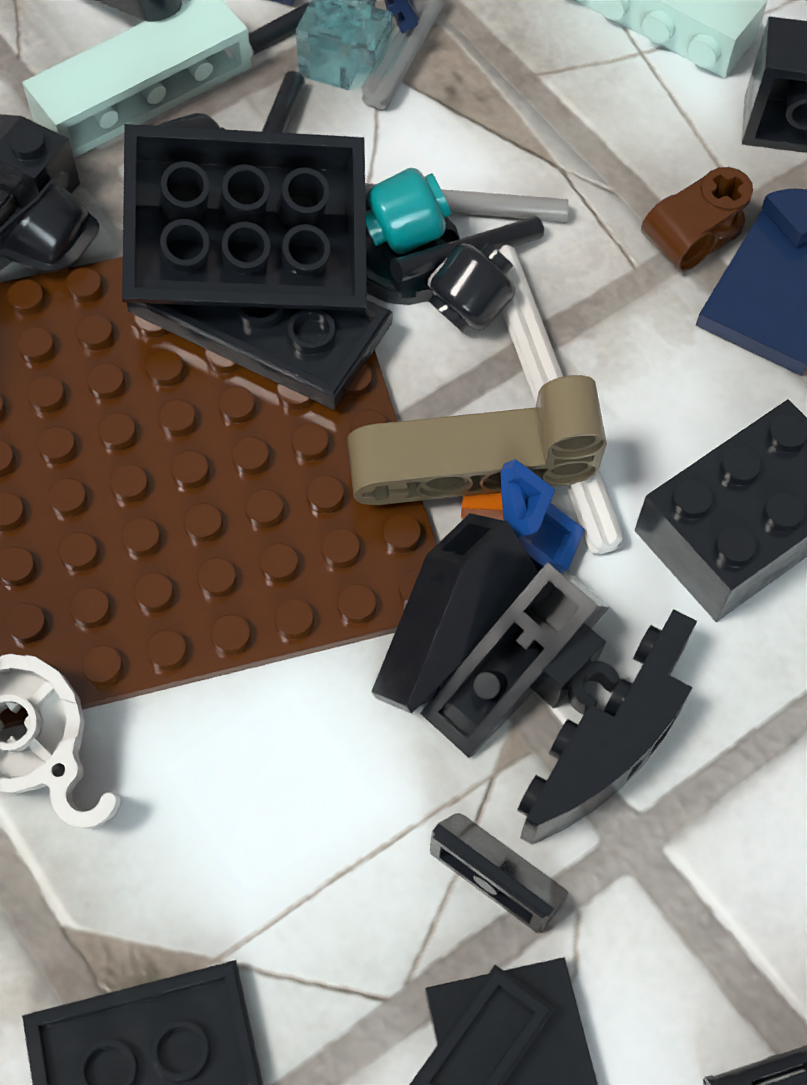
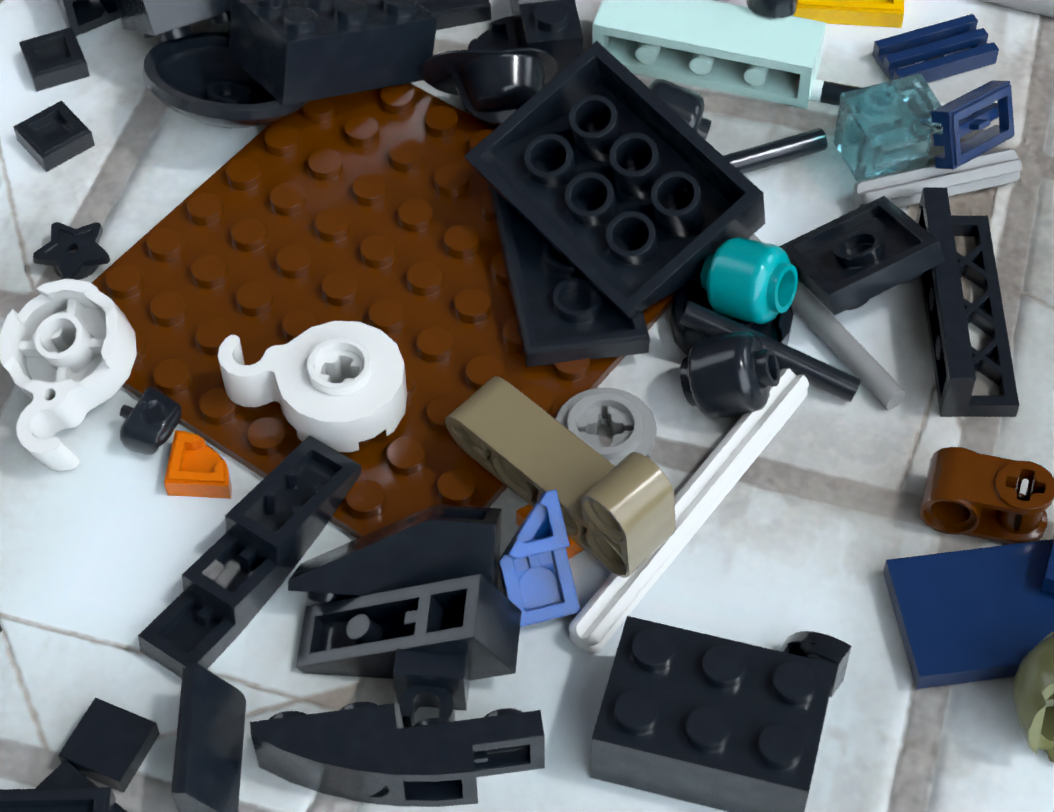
camera: 55 degrees right, 10 degrees down
(140, 709) = (149, 422): none -> black piece
(211, 708) = (196, 469): none -> orange tile
(219, 571) = (332, 382): none -> white piece
(347, 724) = (253, 558): none -> black slope
(431, 944) = (110, 744): none -> black tile
(433, 380) = (626, 414): none -> light grey gear
(444, 128) = (862, 255): none -> black plate
(526, 116) = (951, 313): none -> black fence
(742, 411) = (822, 648): none -> black tile

